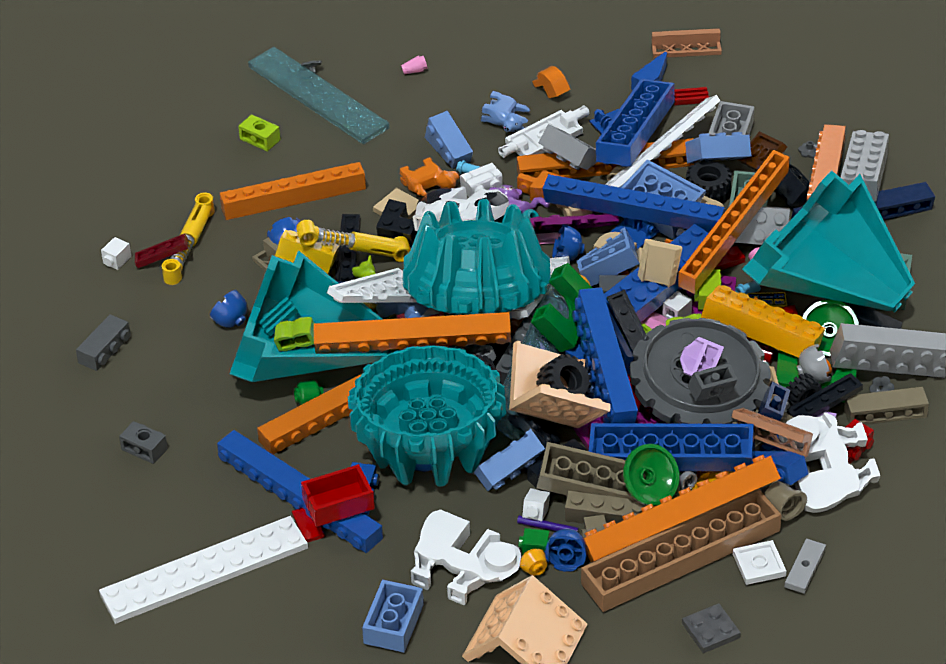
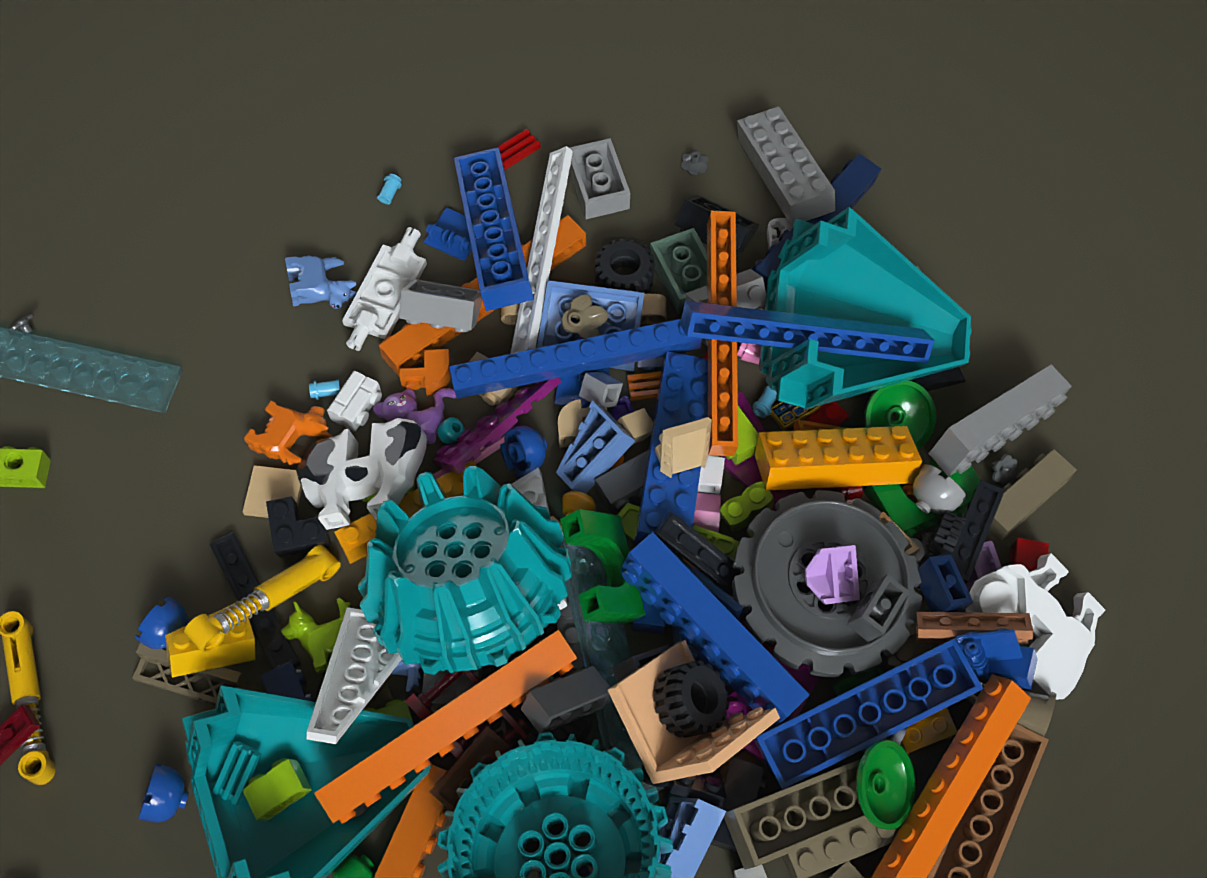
camera: 35 degrees left, 20 degrees up
(292, 190) = (120, 544): orange brick -> none
(414, 65) = (157, 260): bright pink cone -> none
(447, 139) = (276, 361): medium blue wedge -> none
(488, 348) = (565, 699): none -> dark grey brick
(553, 81) = (347, 207): orange brick -> none
(592, 82) = (389, 189): none -> medium azure pin
(639, 231) = (600, 389): none -> light grey brick
(651, 71) = (453, 141): blue slope -> none
(657, 185) = (588, 317): none -> dark tan plate
(686, 40) = (459, 74): nougat fence -> none
(718, 147) = (612, 221): medium blue wedge -> none
(759, 562) = (1054, 814): white plate -> none
(761, 148) = (662, 201): reddish brown plate -> none
(772, 438) = (989, 646): none -> blue hinge
(790, 239) = (791, 330): none -> blue brick
(805, 565) = (1111, 804): light grey tile -> none
(828, 154) = (746, 184): orange brick -> none

